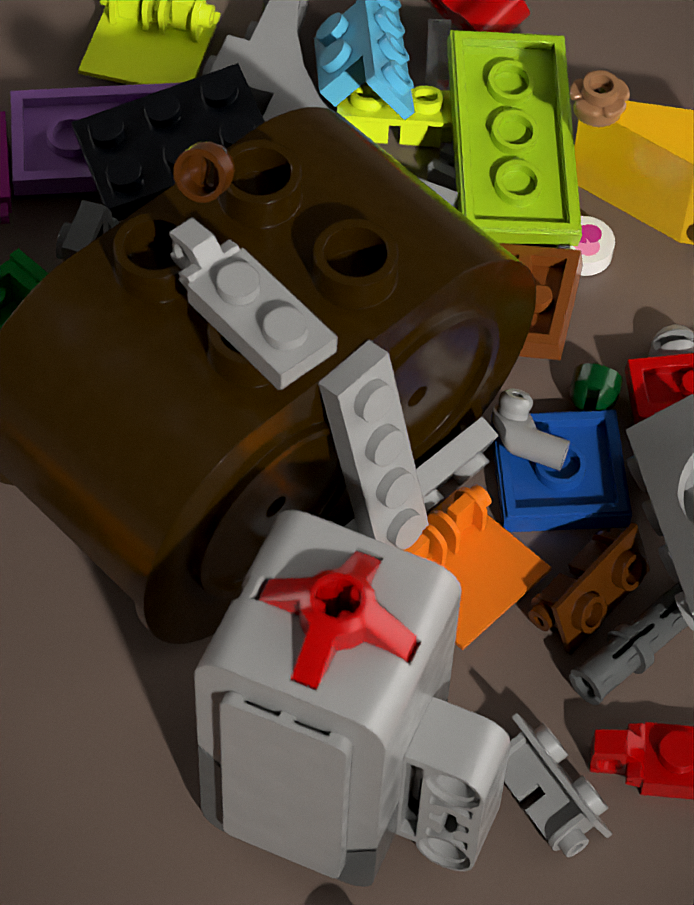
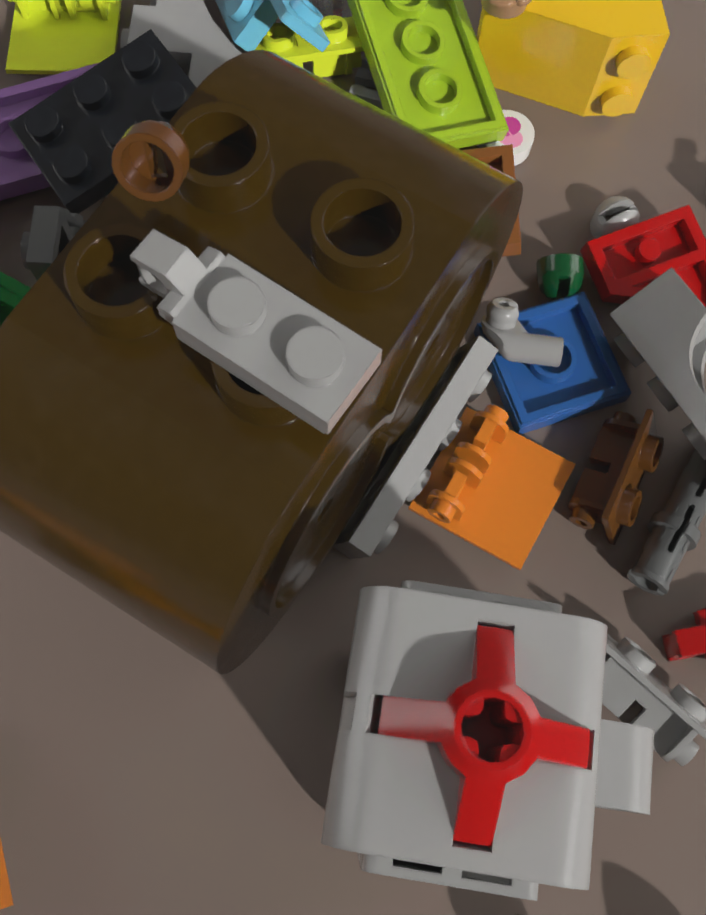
camera: 15 degrees left, 15 degrees up
(374, 447) = (416, 422): light grey plate -> none

